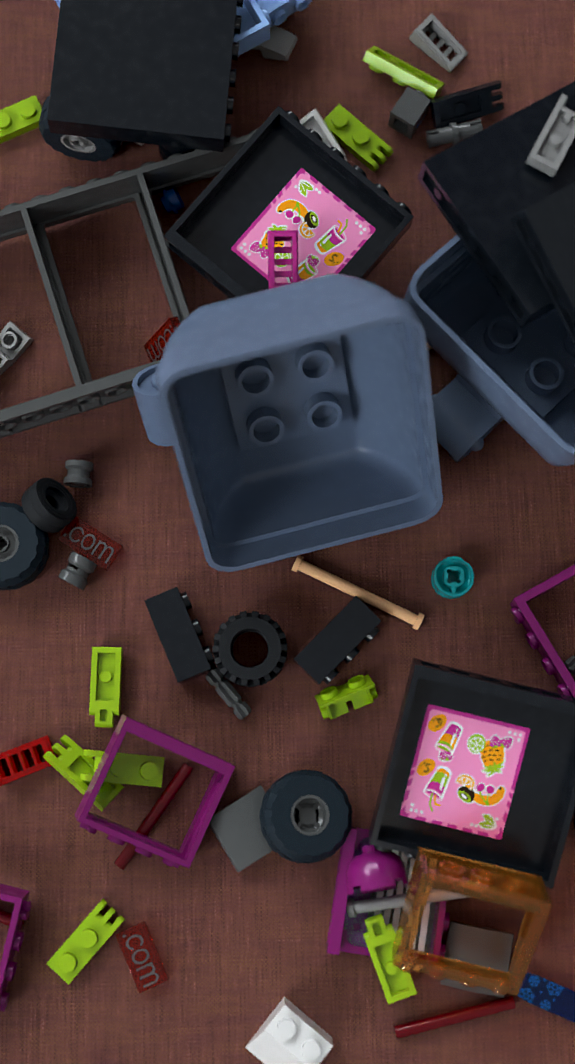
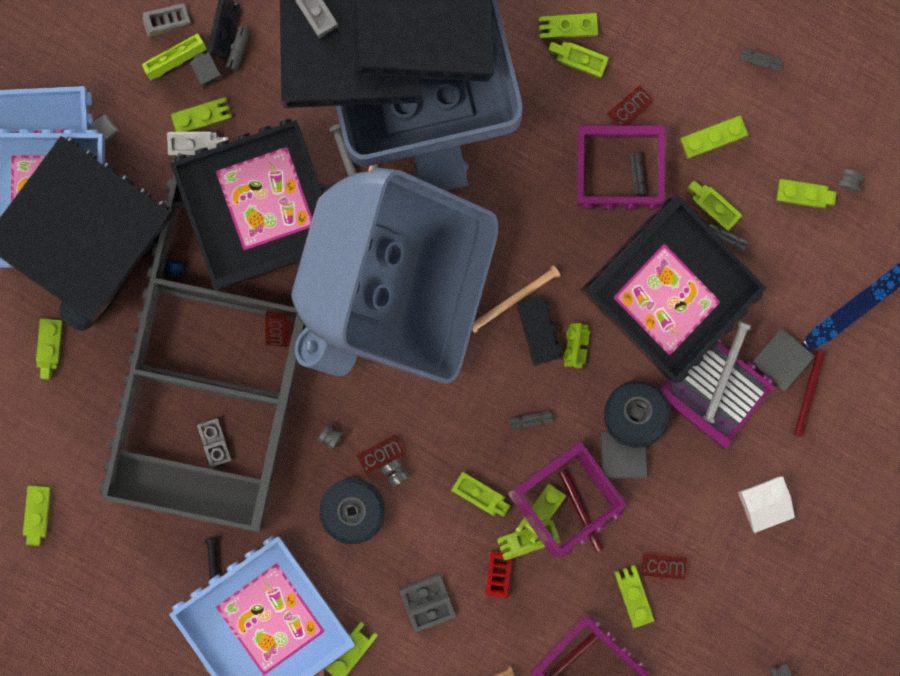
camera: 60 degrees left, 5 degrees up
(49, 505) = (342, 466): black tyre -> none
(179, 634) = (476, 429): black brick -> none
(242, 624) = (512, 369): black tyre -> none
(282, 235) = (266, 224): dark pink slope -> none
(375, 871) = (695, 390): magenta cylinder -> none
(380, 940) = (751, 413): lime hinge -> none
(452, 577) = (540, 233): teal wheel -> none
(481, 882) = (734, 330): clear orange windscreen -> none

